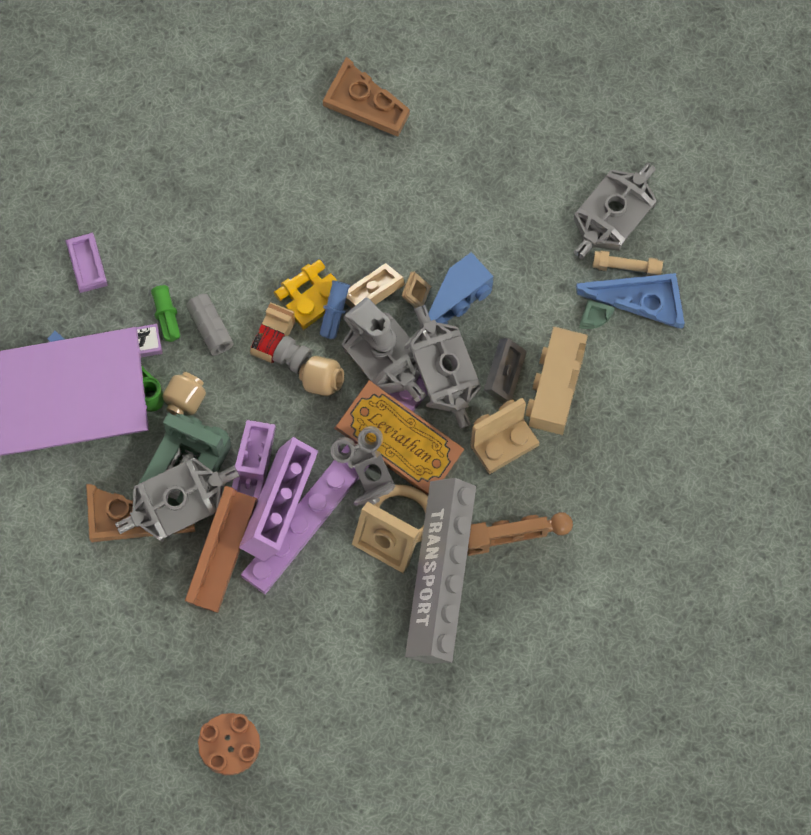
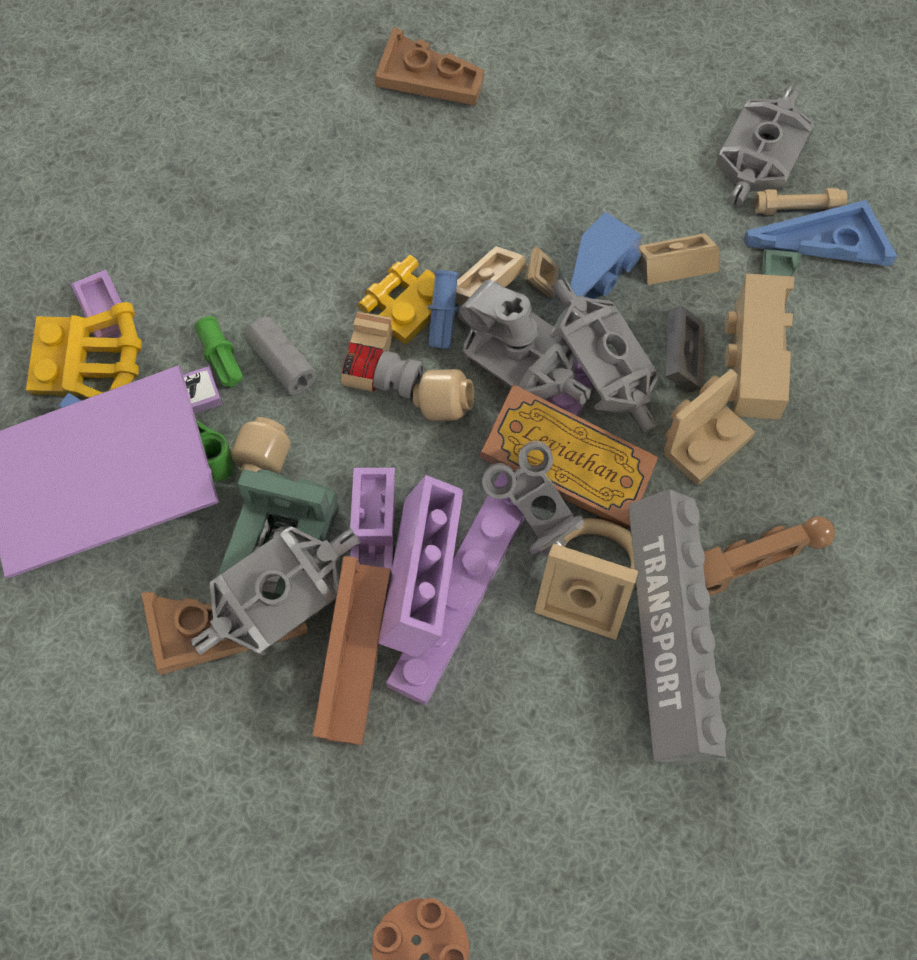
camera: 10 degrees left, 5 degrees down
(52, 297) = (62, 347): none -> yellow plate
(522, 295) = (679, 258): none -> tan slope

